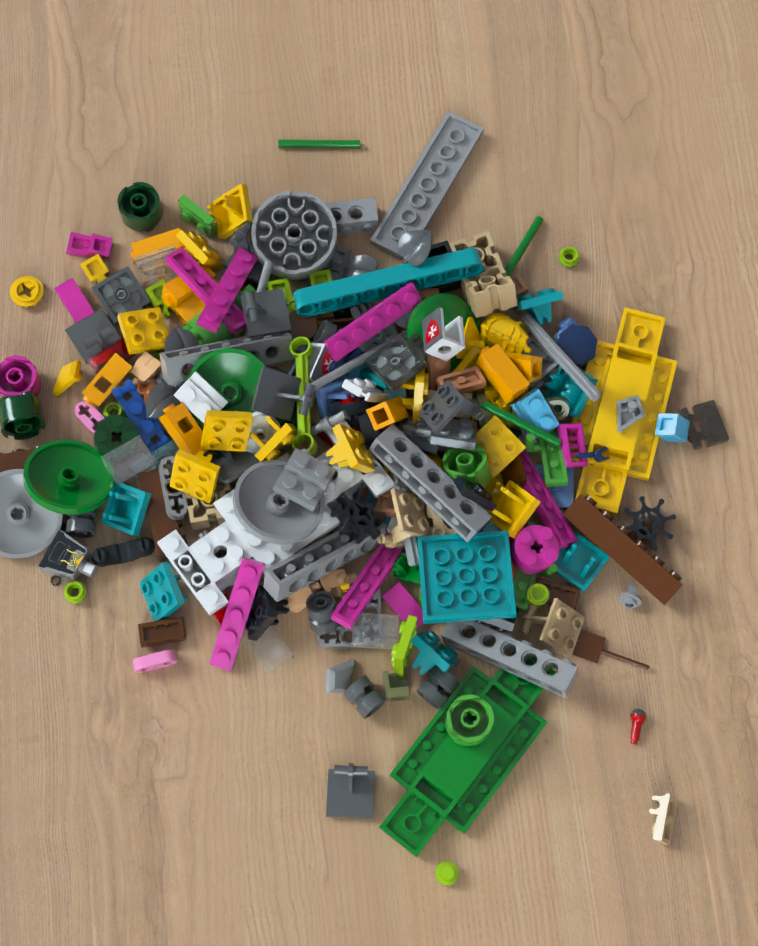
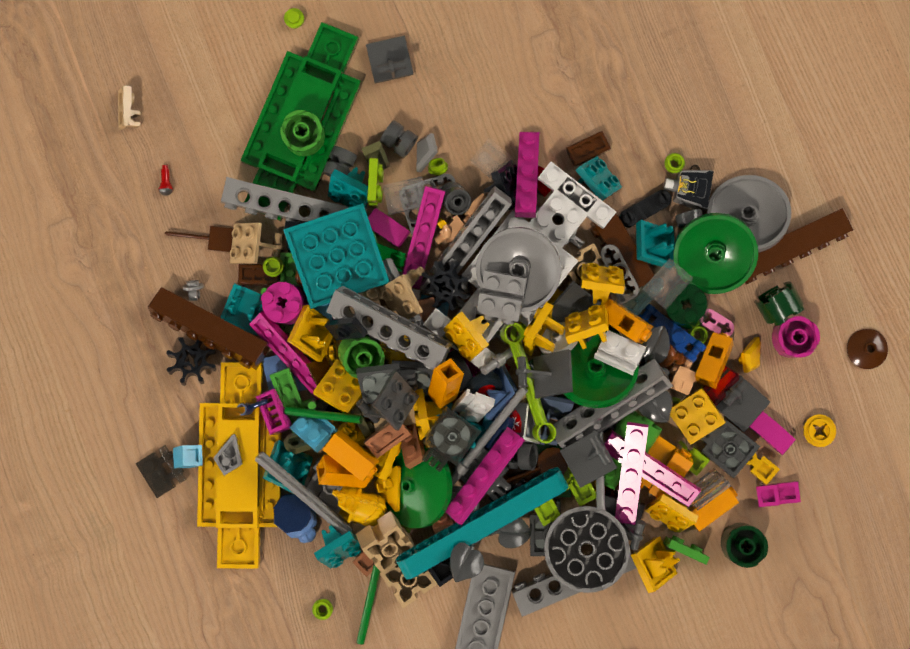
camera: 170 degrees right, 15 degrees up
(154, 661) = (586, 121): bright pink beam -> none
(330, 661) = (437, 166): none -> lime plate
(437, 335) = (414, 473): white piece -> none

